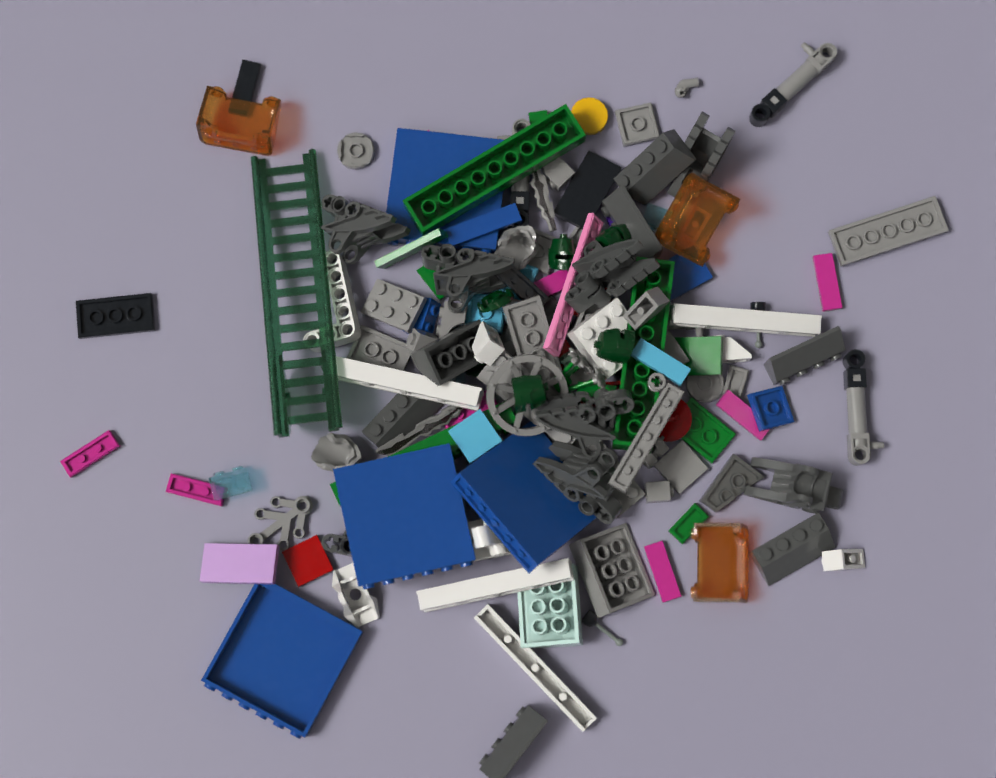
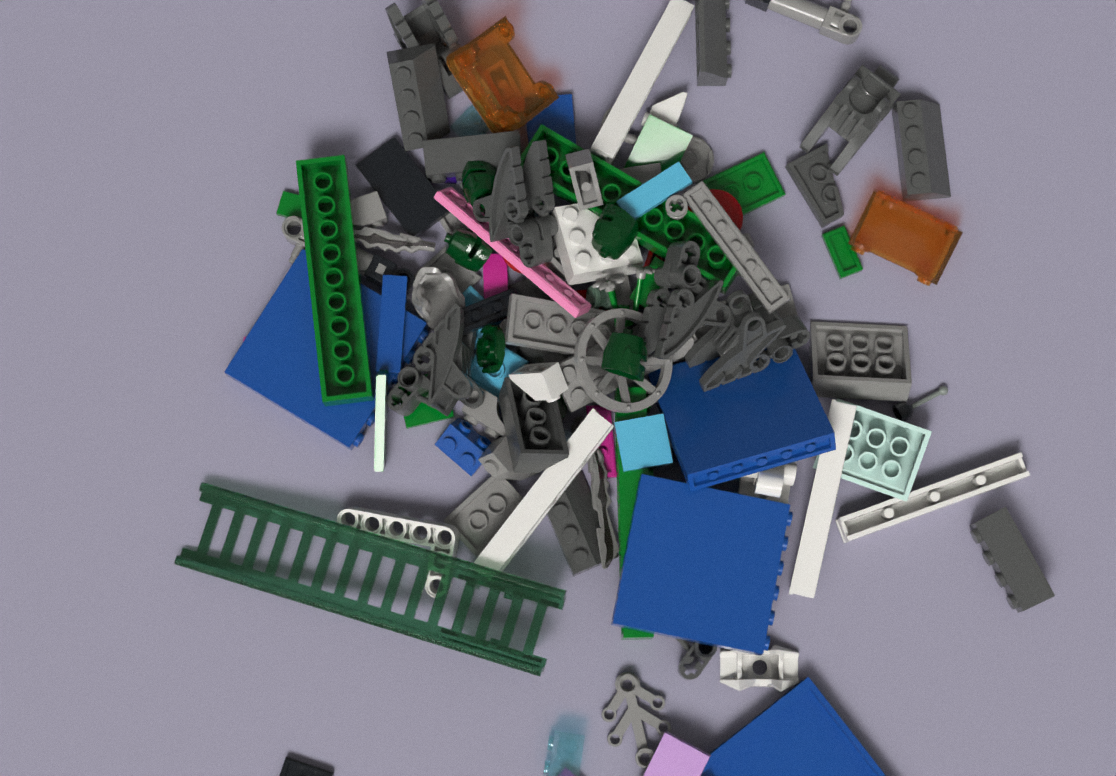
camera: 70 degrees left, 0 degrees up
(237, 122) = (125, 558): clear orange windscreen -> none
(246, 80) = (83, 534): black tile -> none
(307, 561) = (695, 706): red tile -> none
(335, 452) = (585, 616): light grey hair -> none
(355, 151) = (225, 435): light grey tile -> none
(358, 227) = (325, 469): dark grey piece -> none
(393, 306) = (438, 472): light grey plate -> none
(590, 115) = (314, 141): yellow tile -> none
(637, 124) = (350, 96): light grey tile -> none
(658, 492) = (793, 268): light grey brick -> none
(662, 571) = (884, 306): dark pink tile -> none
(680, 466) = (774, 230): light grey tile -> none
(683, 86) = (329, 22): light grey arm -> none
(735, 380) = (707, 128): light grey tile -> none
(740, 413) = (747, 133): dark pink tile -> none
(758, 306) = (630, 61): black hinge -> none
(770, 408) = (752, 100): blue tile -> none
(843, 559) = (957, 102): white slope -> none

